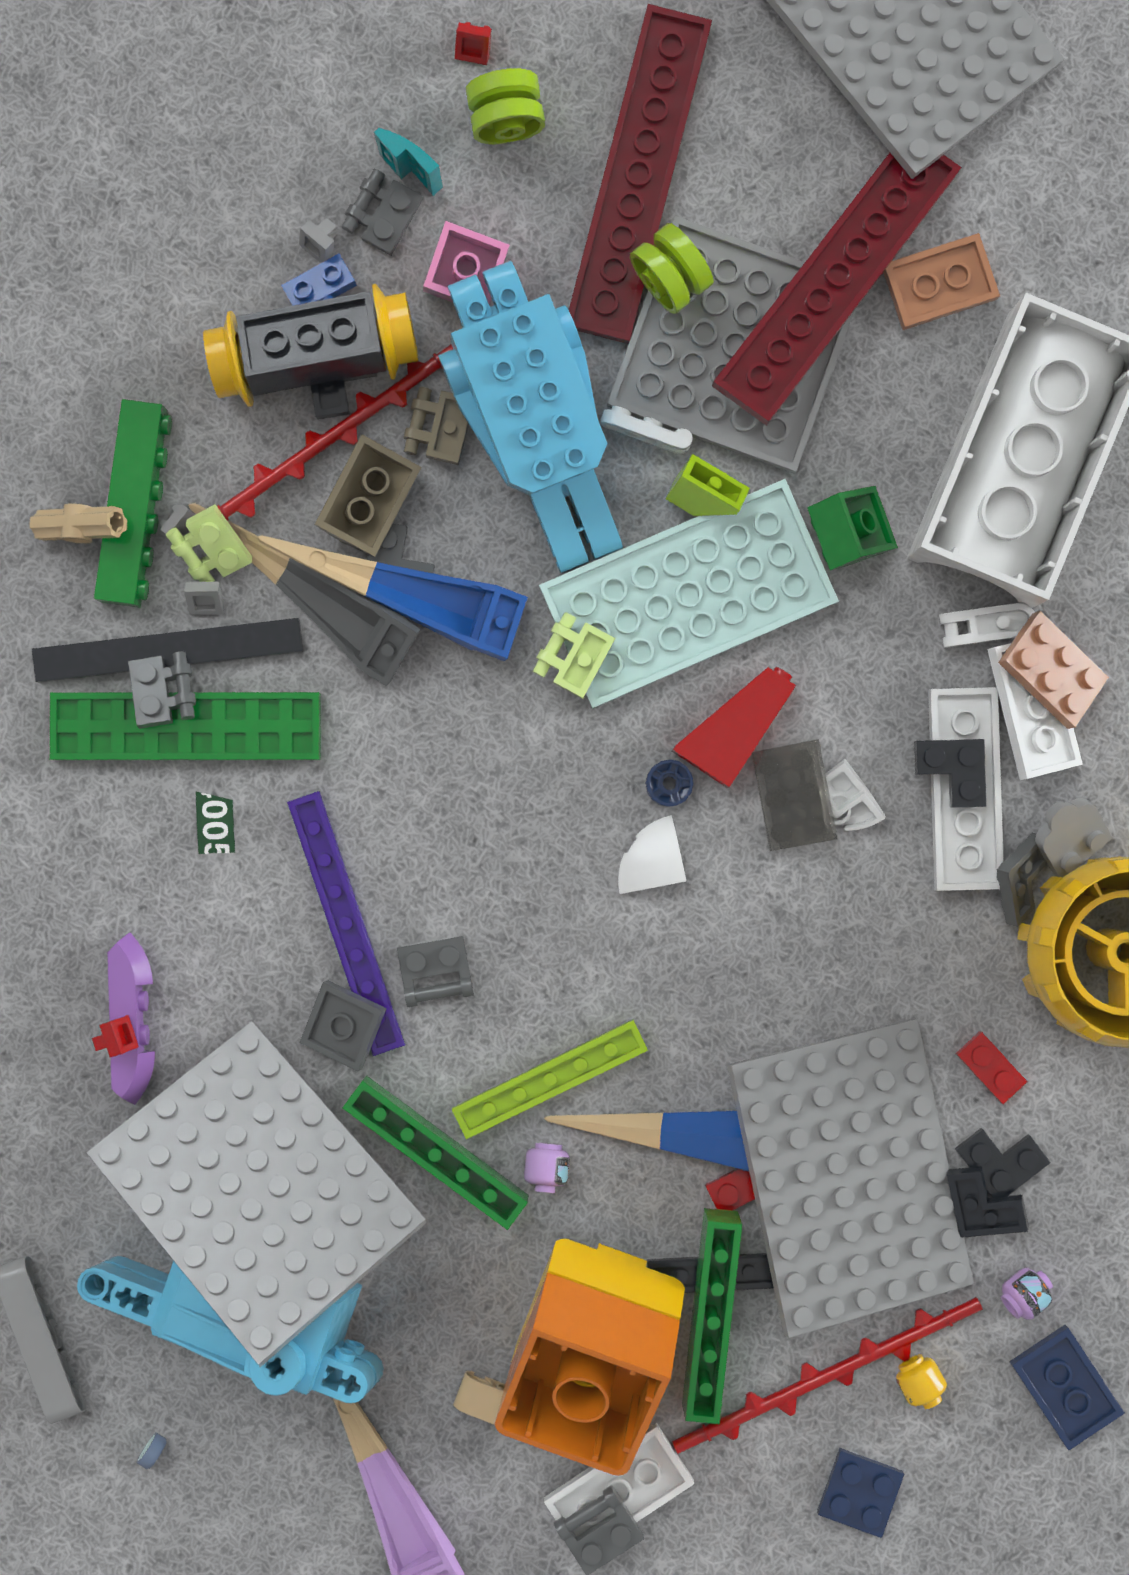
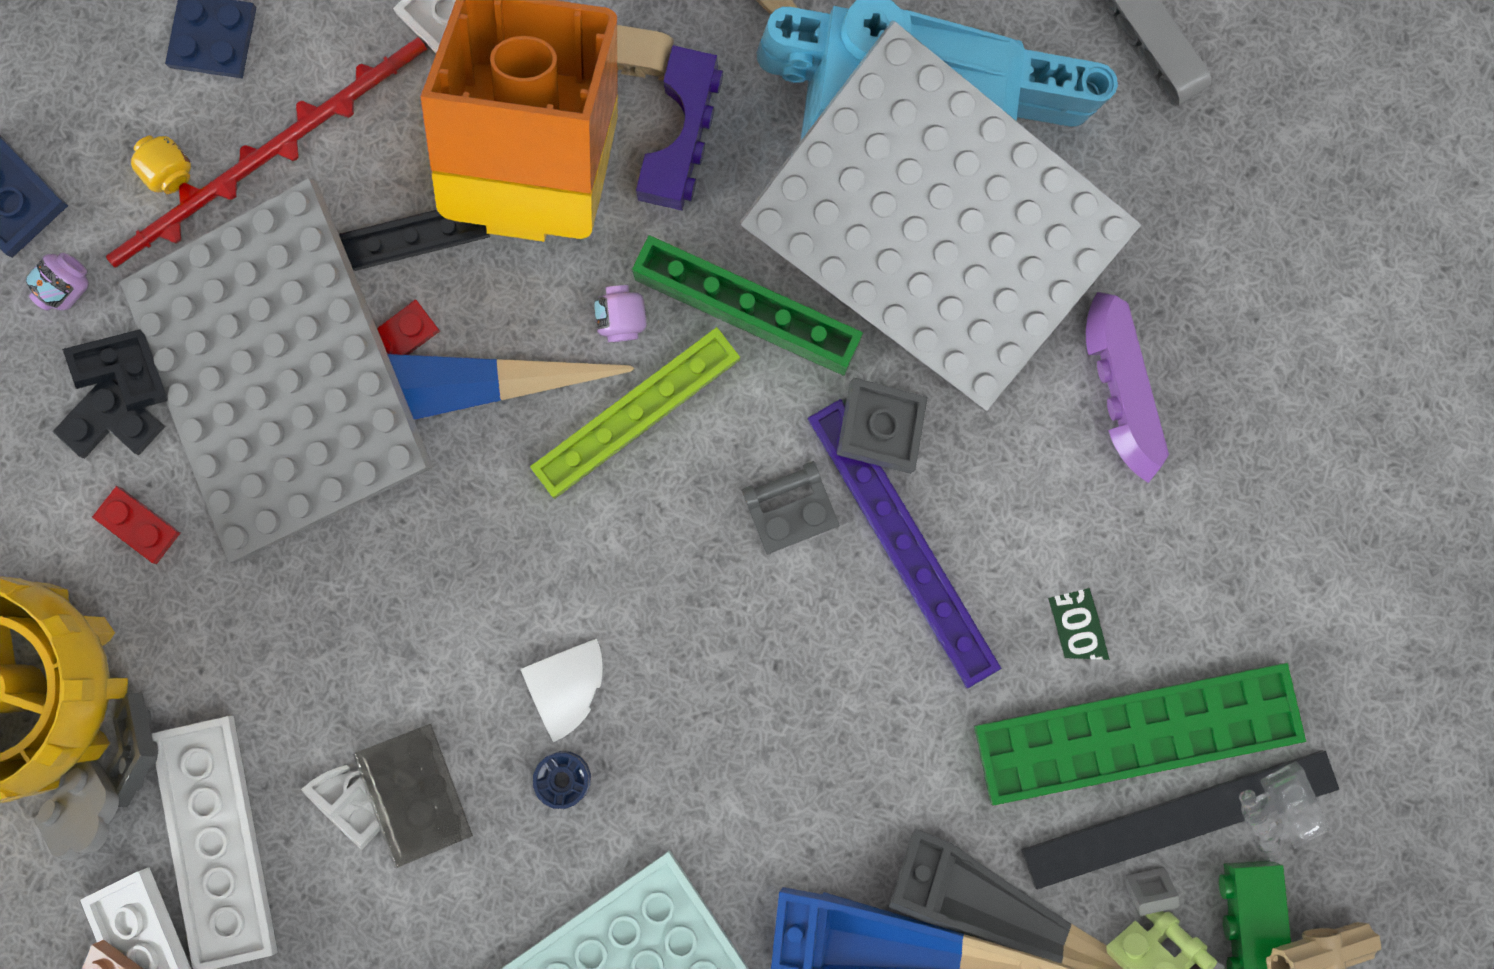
camera: 175 degrees right, 5 degrees down
(72, 644) = (1294, 805): none -> clear plate
(116, 1037) = (1136, 360): red tile -> none
(151, 691) = (1189, 768): plate -> none
(482, 1284) = (667, 173): none -> dark purple arch
(583, 659) = (688, 909): yellowish green plate -> none
(711, 1315) = (402, 189): green brick -> none
(734, 730) = (497, 856): red slope -> none
(962, 761) = (221, 875): black plate -> none

